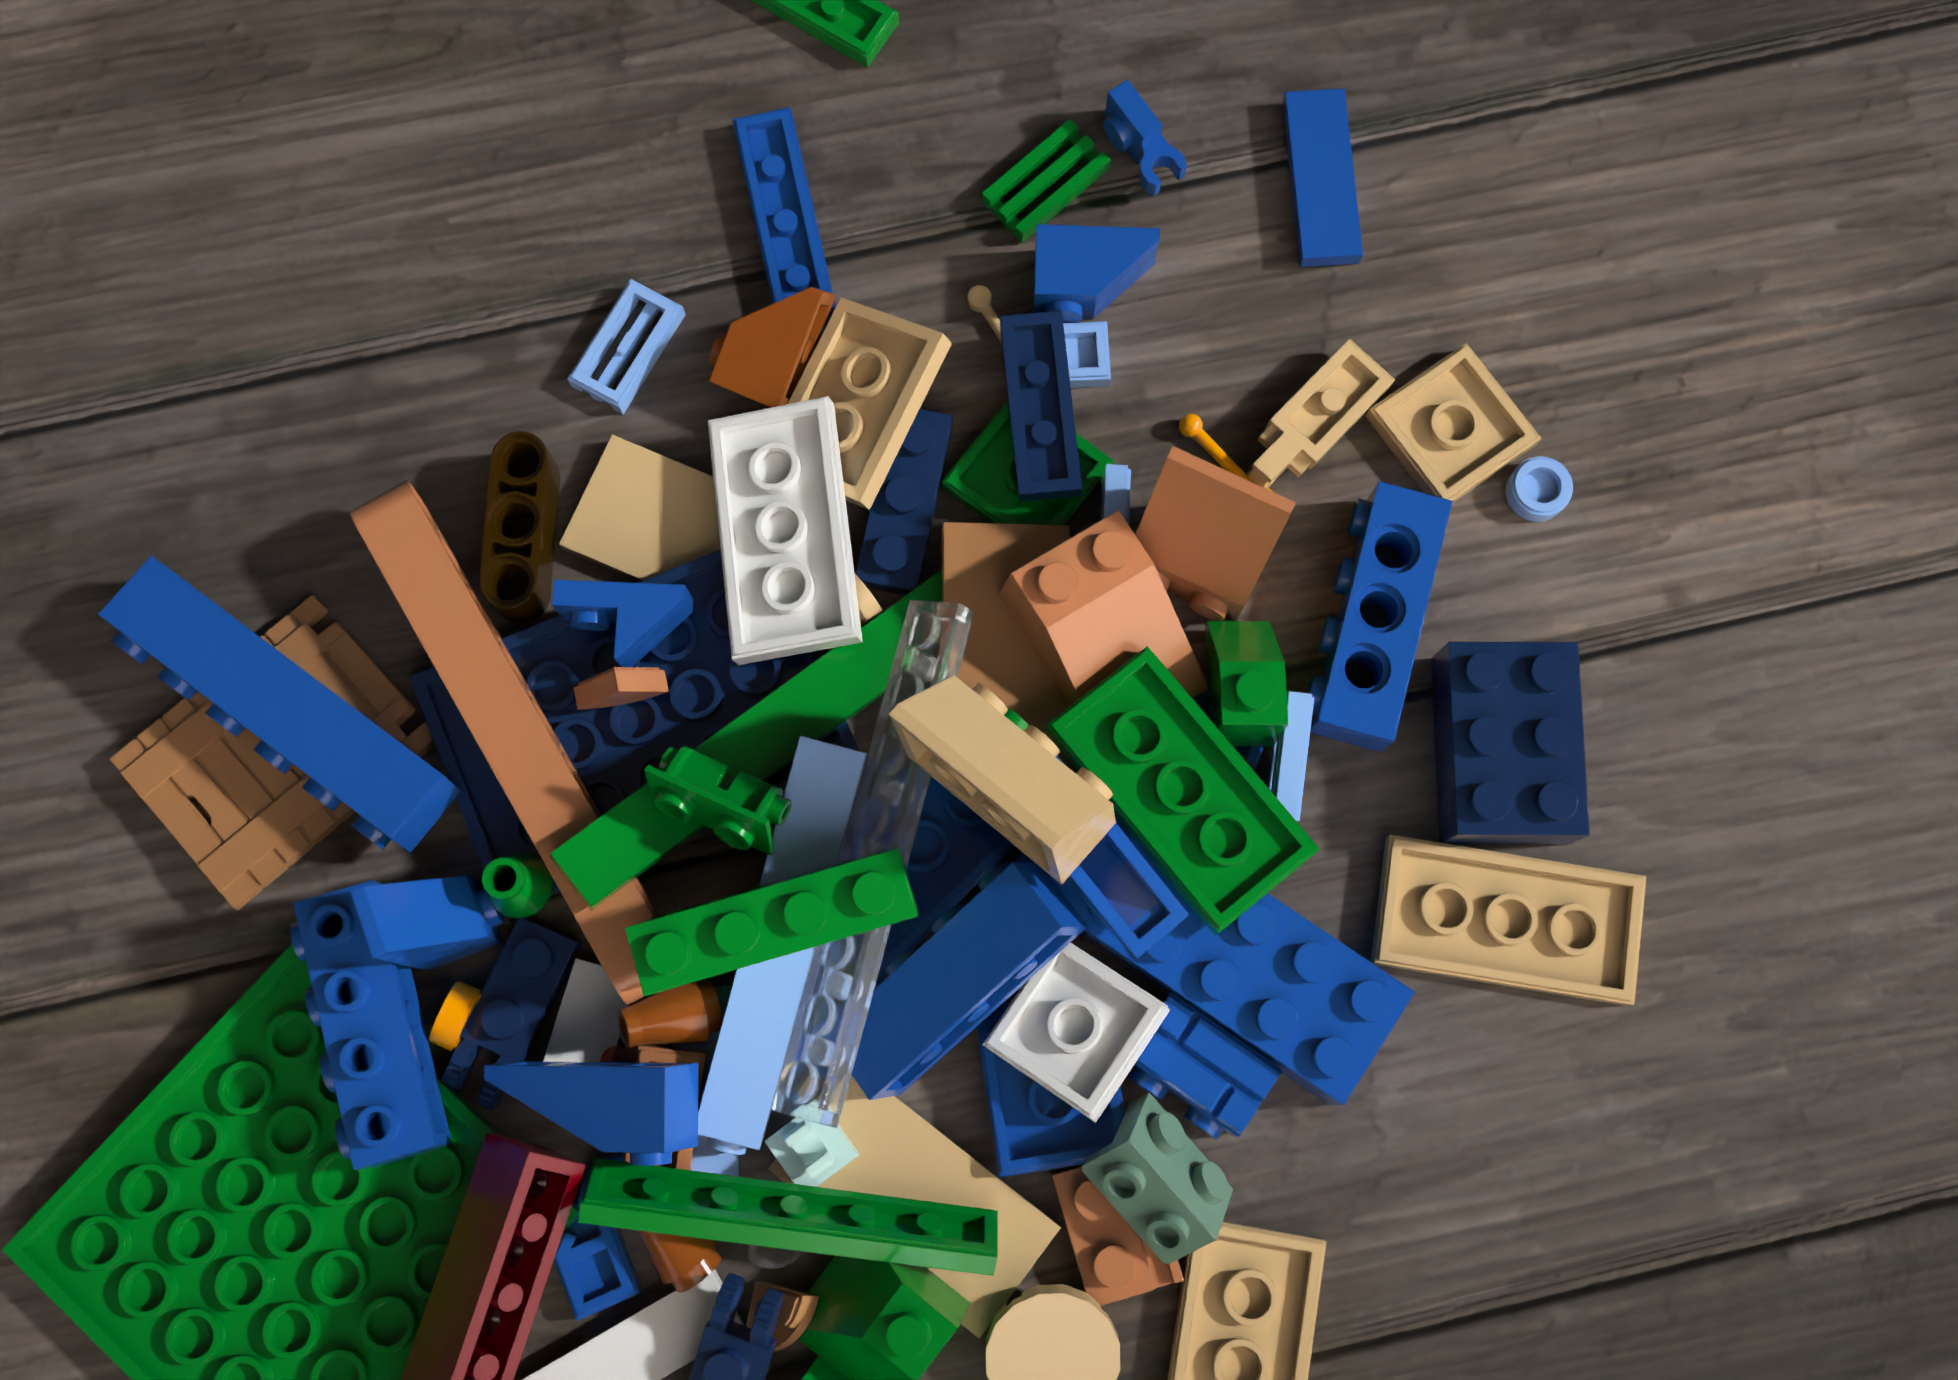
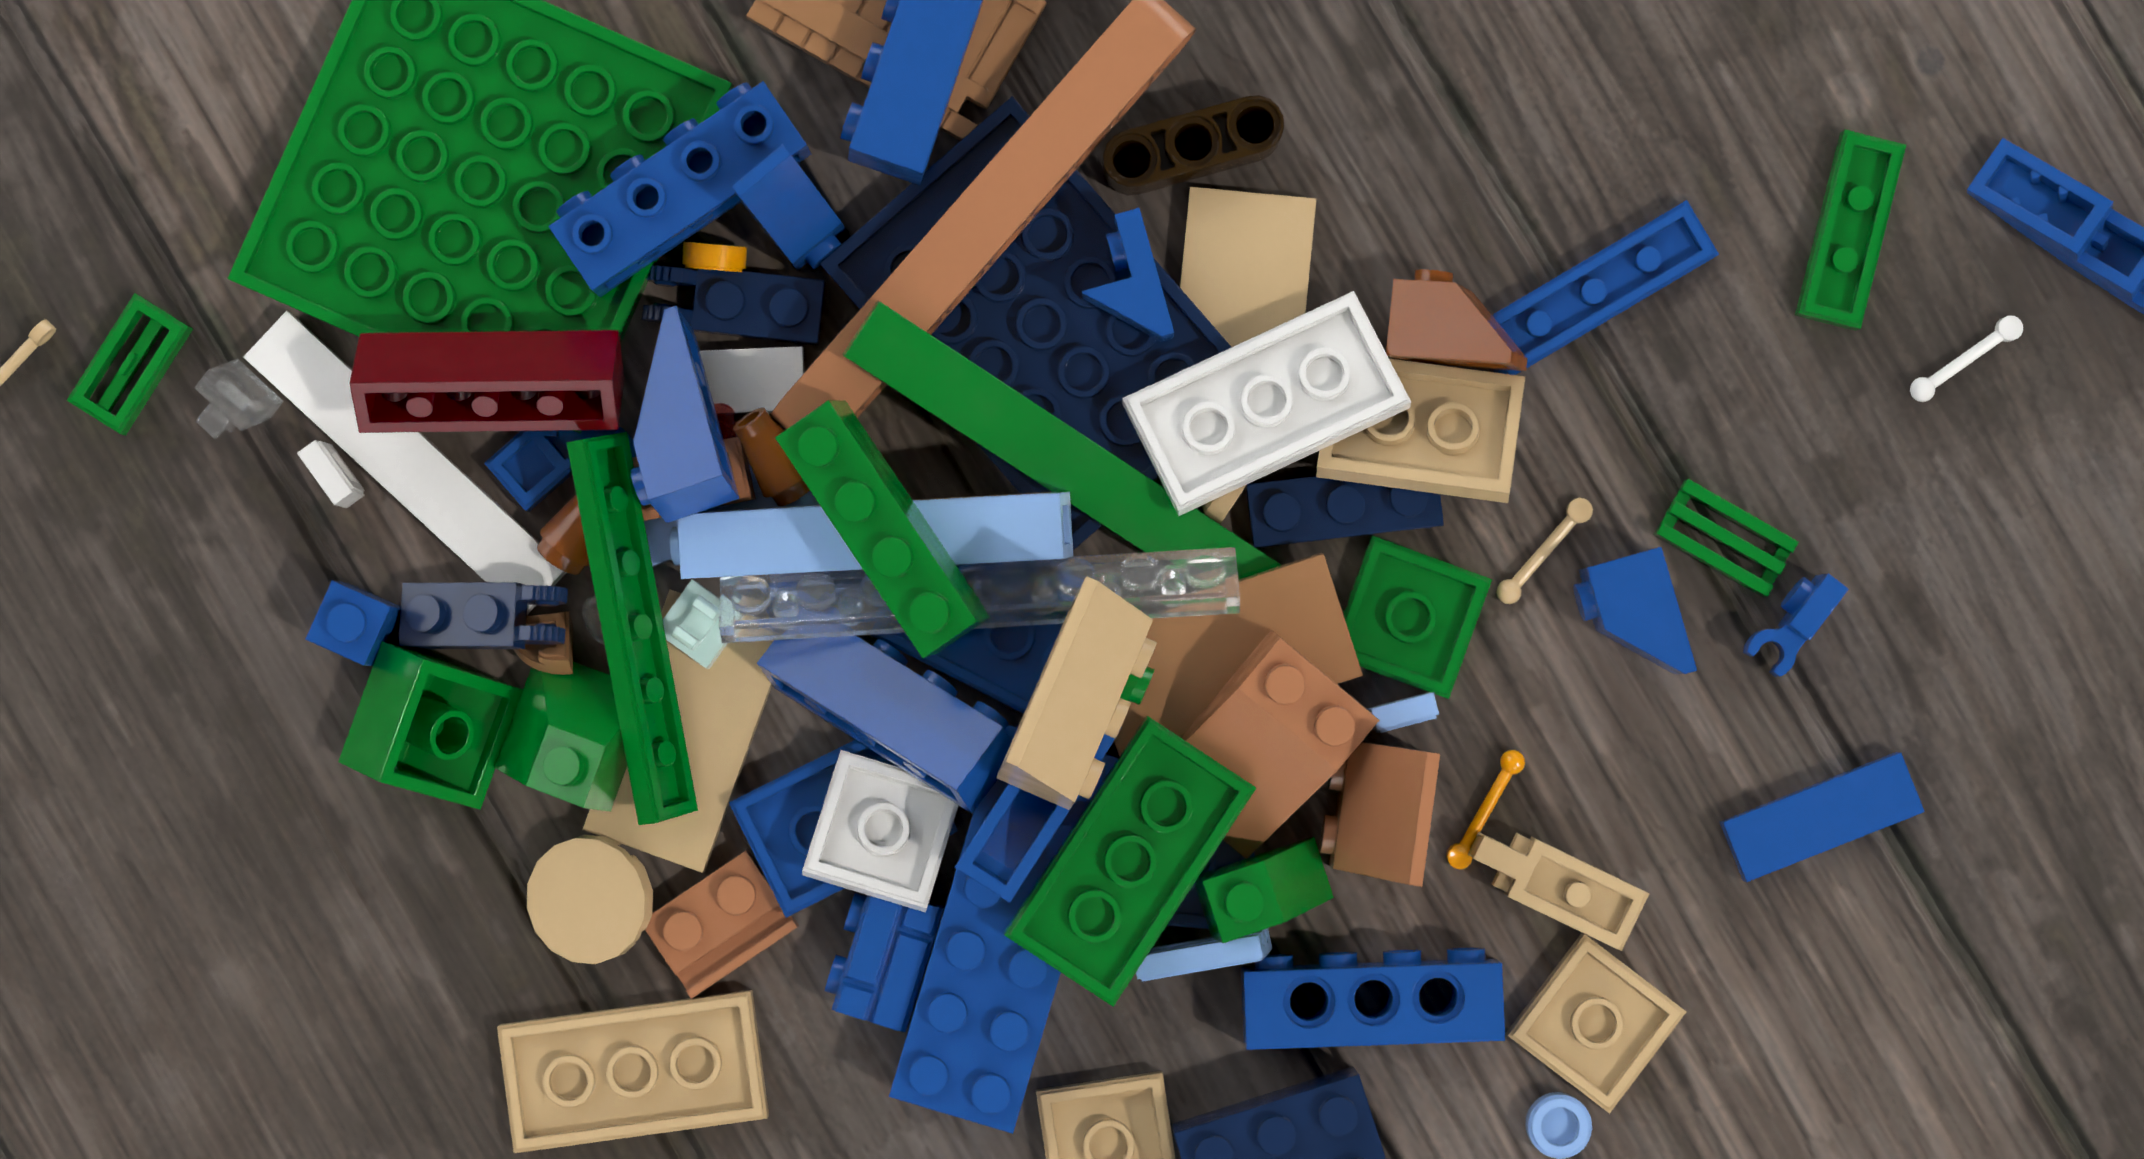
camera: 75 degrees right, 10 degrees up
(531, 887) = (856, 288): green cone -> none
(620, 687) = (1063, 301): nougat tile -> none
(625, 392) = (1409, 203): light blue tile -> none
(689, 789) = (968, 461): green hinge -> none
(1040, 406) = (1475, 609): dark blue plate -> none
(1088, 354) = (1550, 628): light blue tile -> none
(1160, 1181) = (770, 951): sand green bracket -> none

